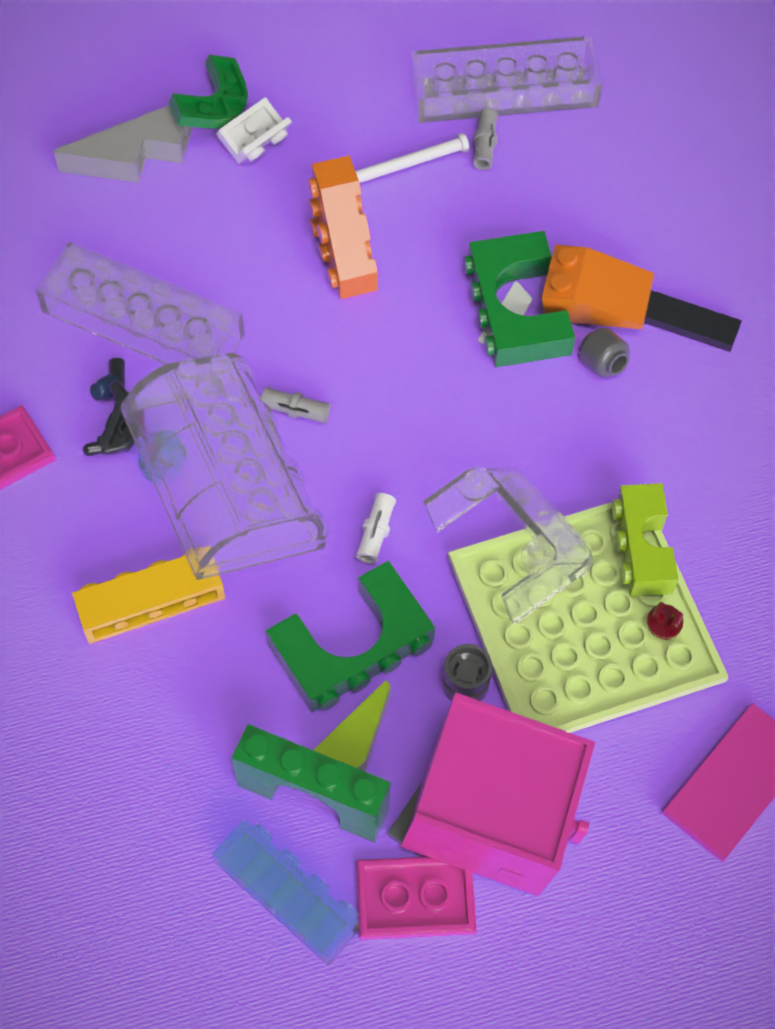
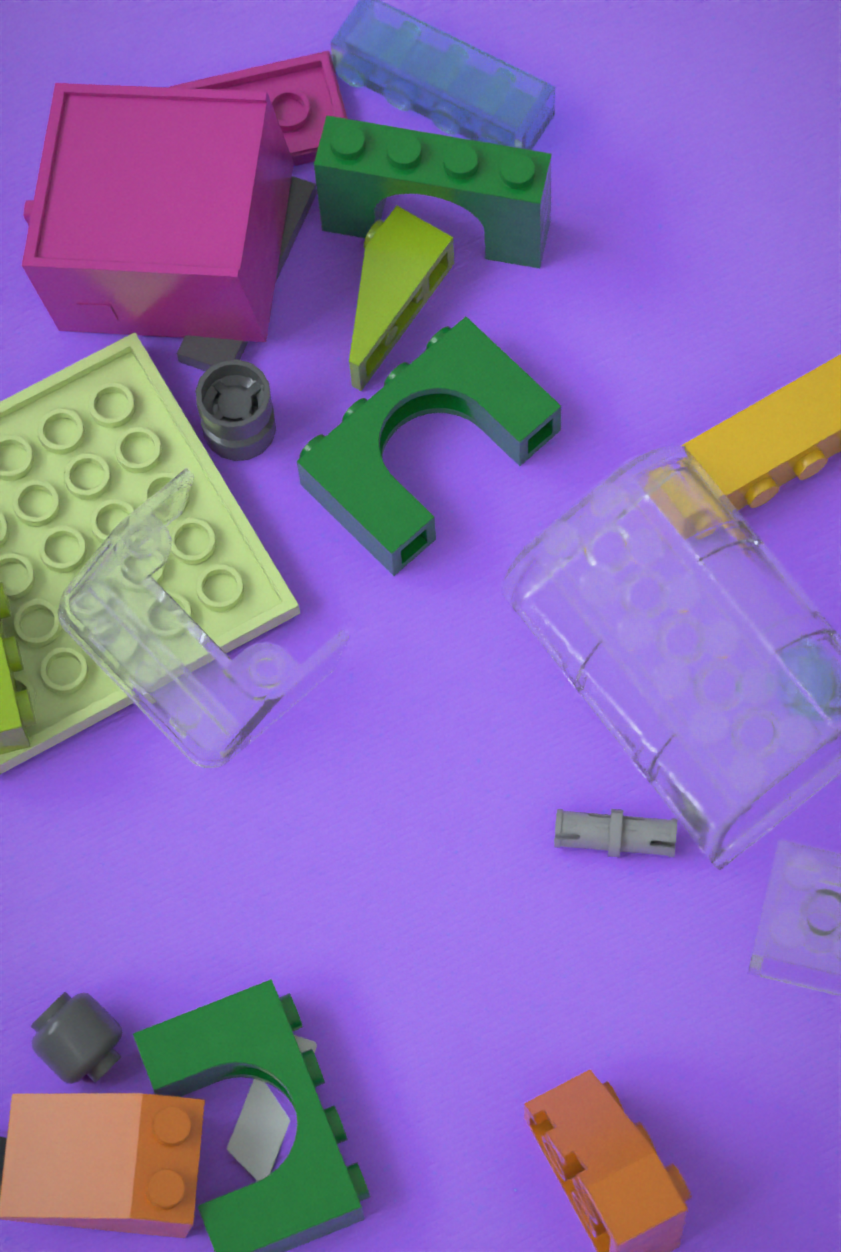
camera: 175 degrees right, 5 degrees up
(380, 514) = (423, 667): white pin -> none

